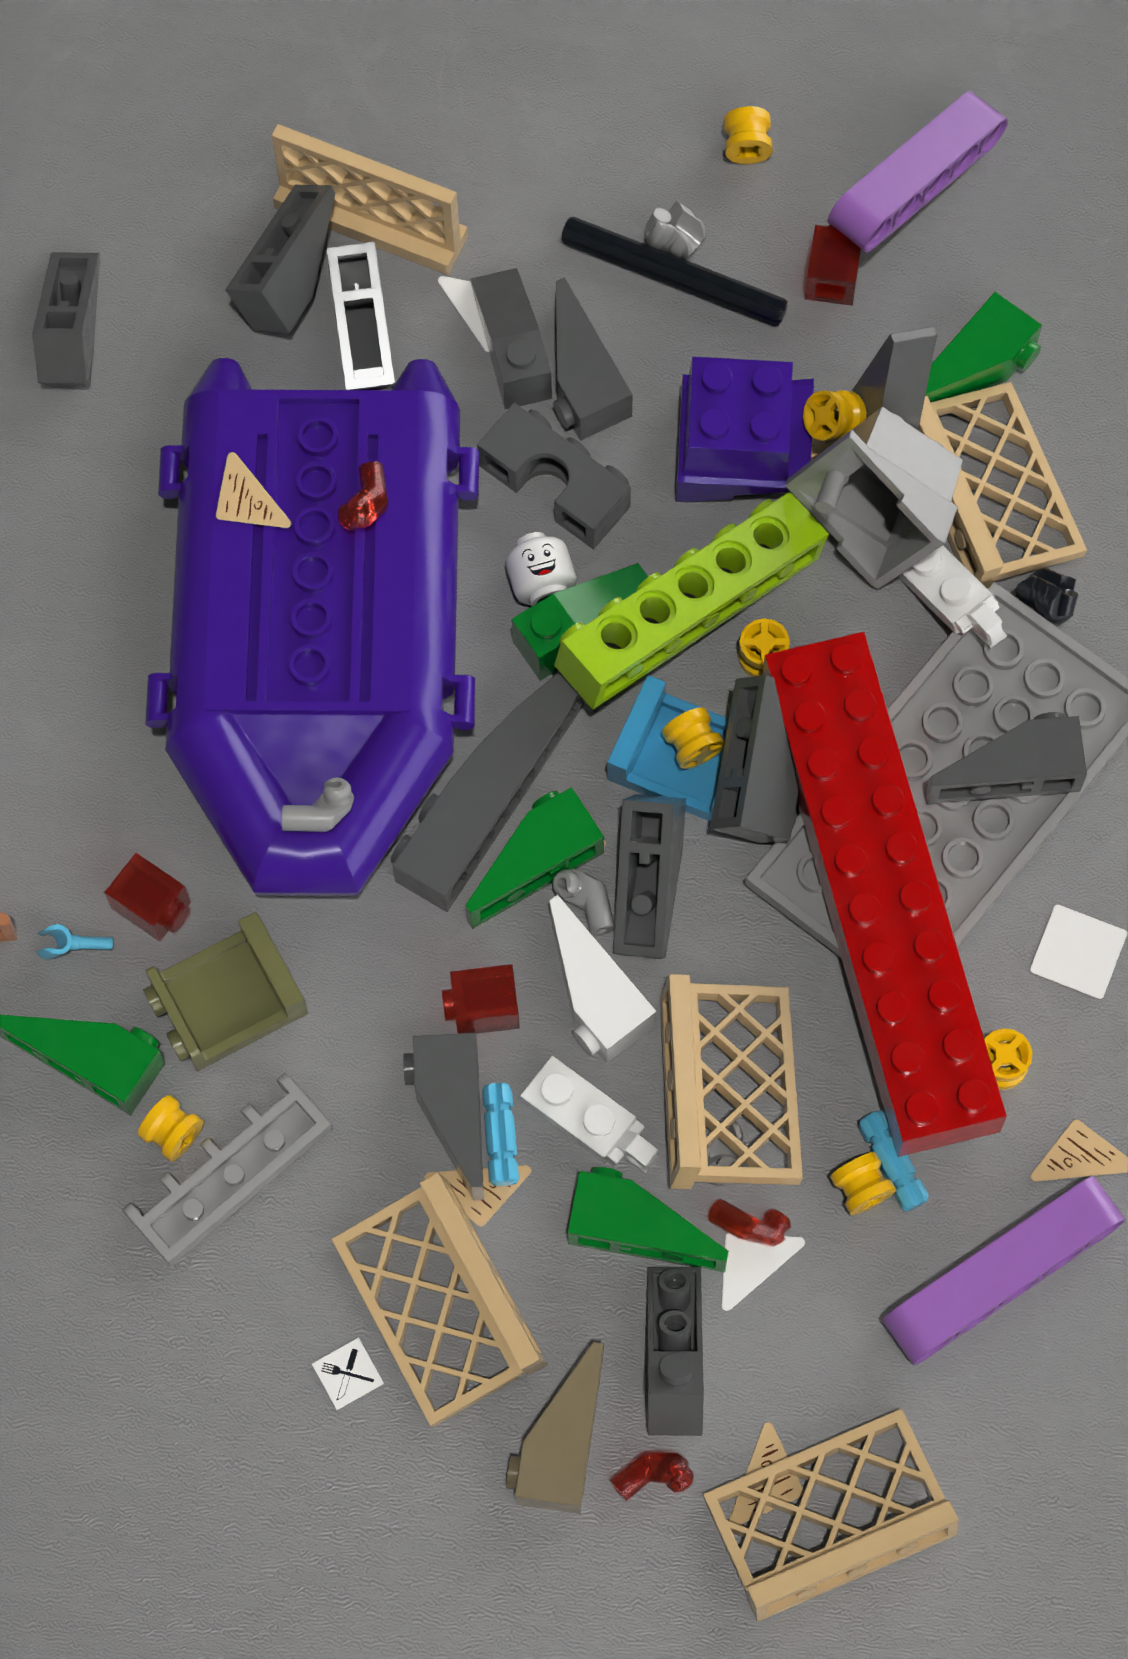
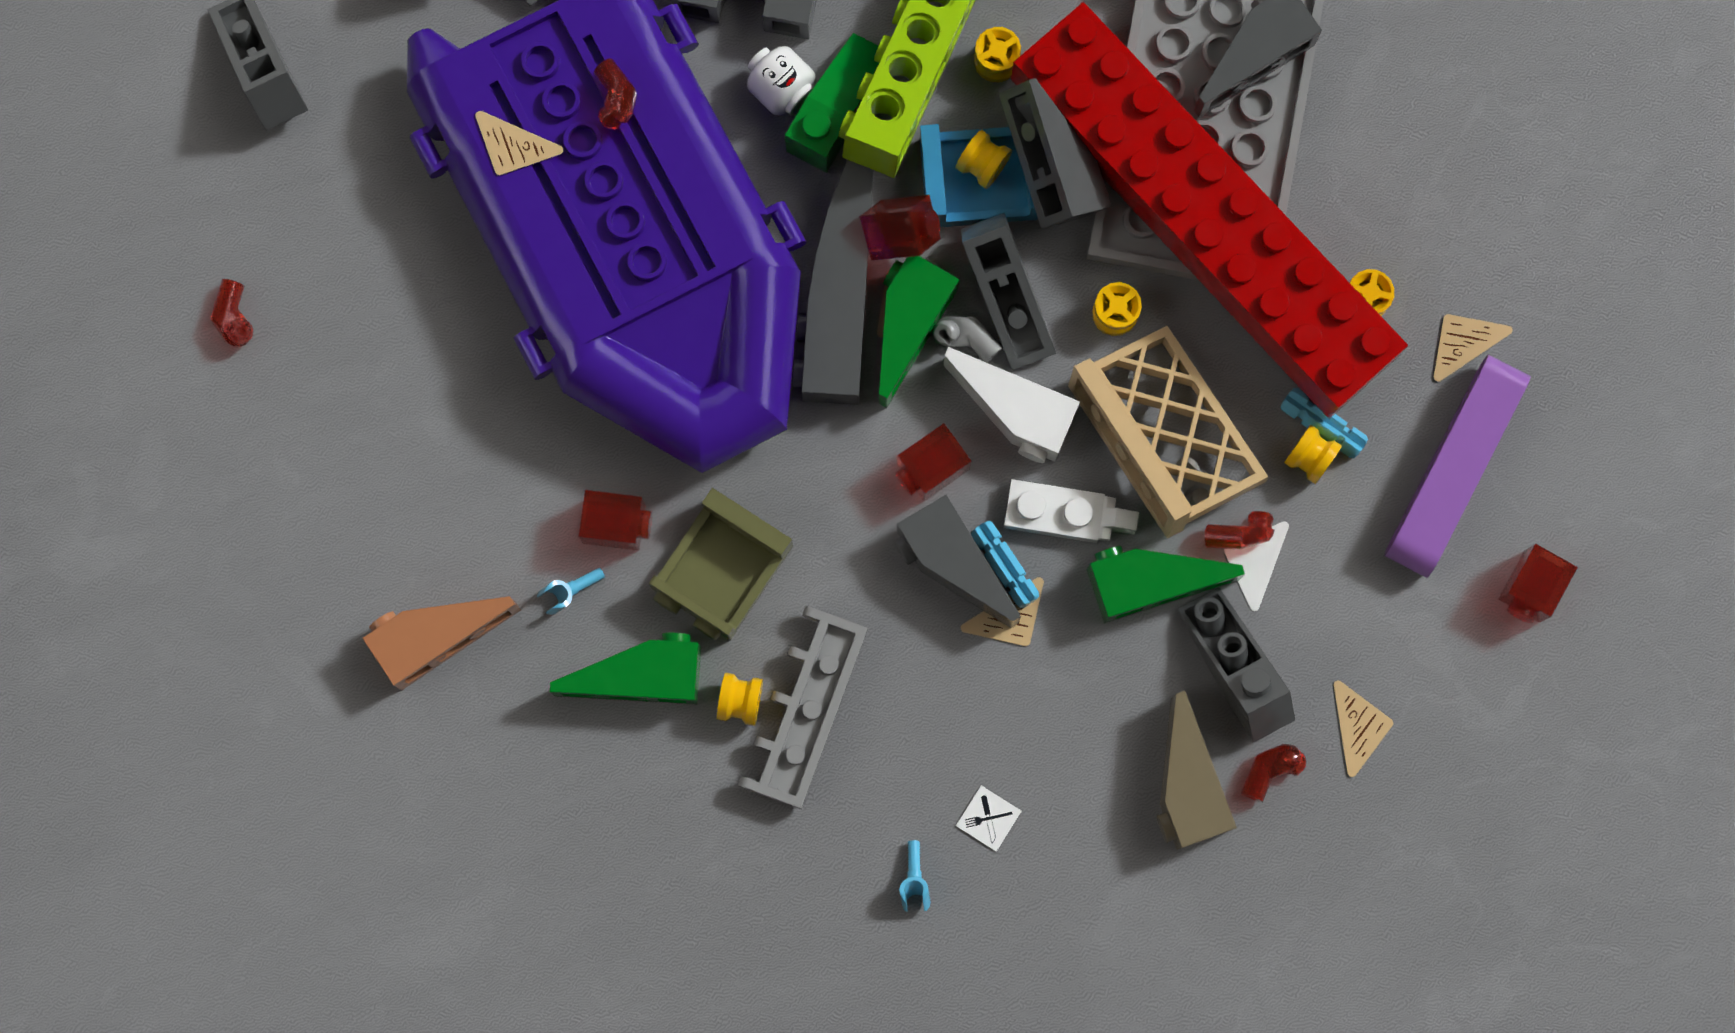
camera: 30 degrees left, 10 degrees up
(236, 1396) = (914, 883): none -> medium azure hand
(324, 812) = (731, 378): light grey arm -> none
(478, 1275) = (1053, 688): tan fence -> none
(573, 759) = (900, 227): none -> clear red brick
(746, 933) = (1122, 301): none -> yellow wheel
(851, 1557) = (1458, 753): tan fence -> none
(1021, 1429) = (1537, 584): none -> clear red brick
(1078, 951) = (1376, 177): white sticker -> none

